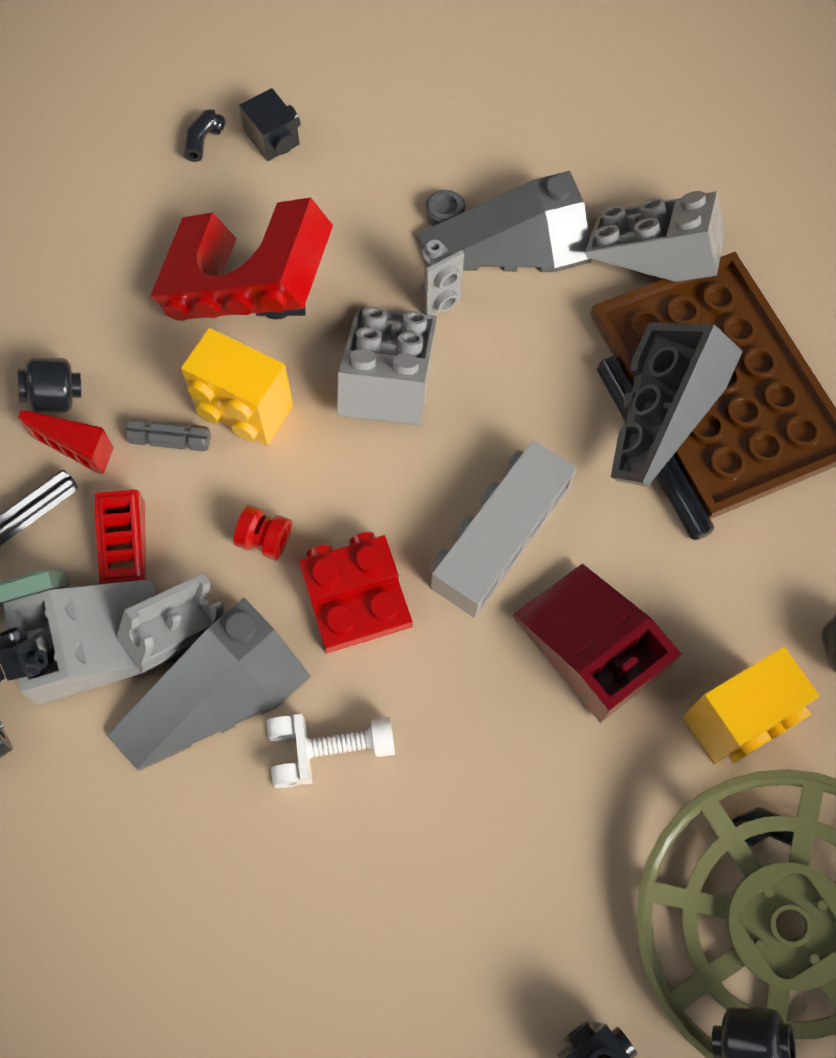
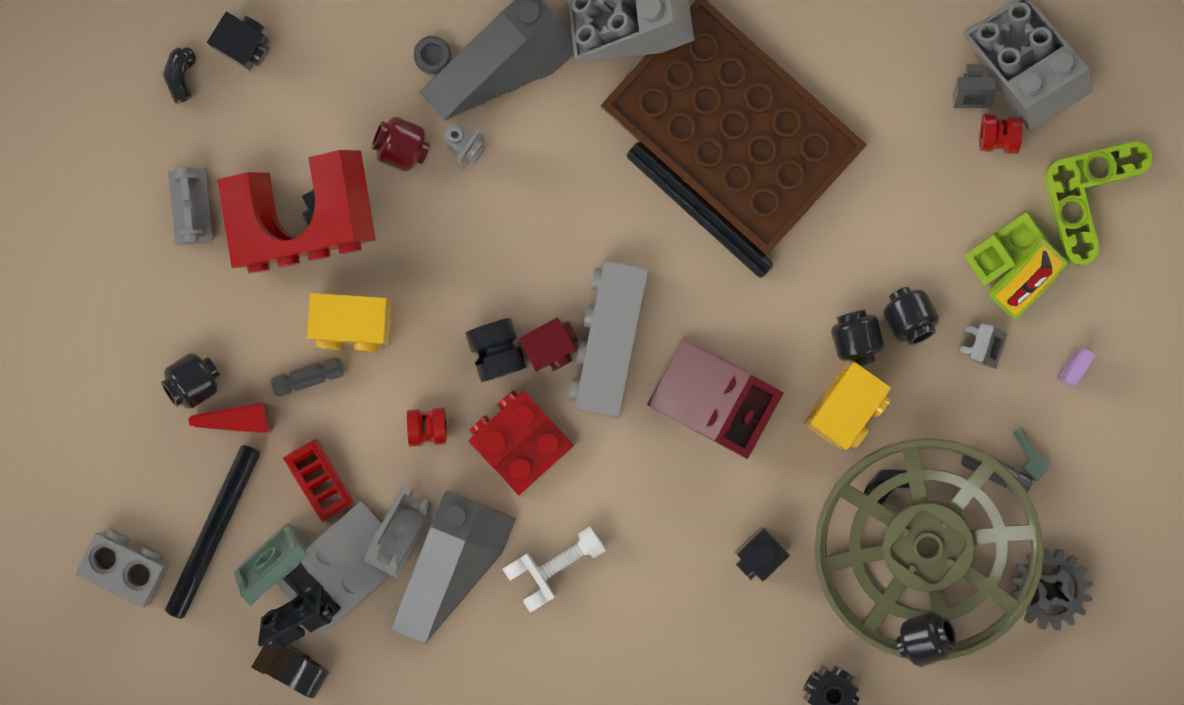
camera: 25 degrees left, 20 degrees up
(146, 238) = (190, 205): none -> light grey hinge
(375, 262) = (400, 144): none -> dark red head
(377, 482) = (495, 349): none -> black wheel
(386, 366) = (454, 234): light grey slope -> none
(434, 505) = (550, 345): none -> dark red brick
(577, 840) = (760, 555): none -> black brick
(676, 382) = (698, 167): dark grey wedge -> none
(787, 628) = (857, 337): none -> black head

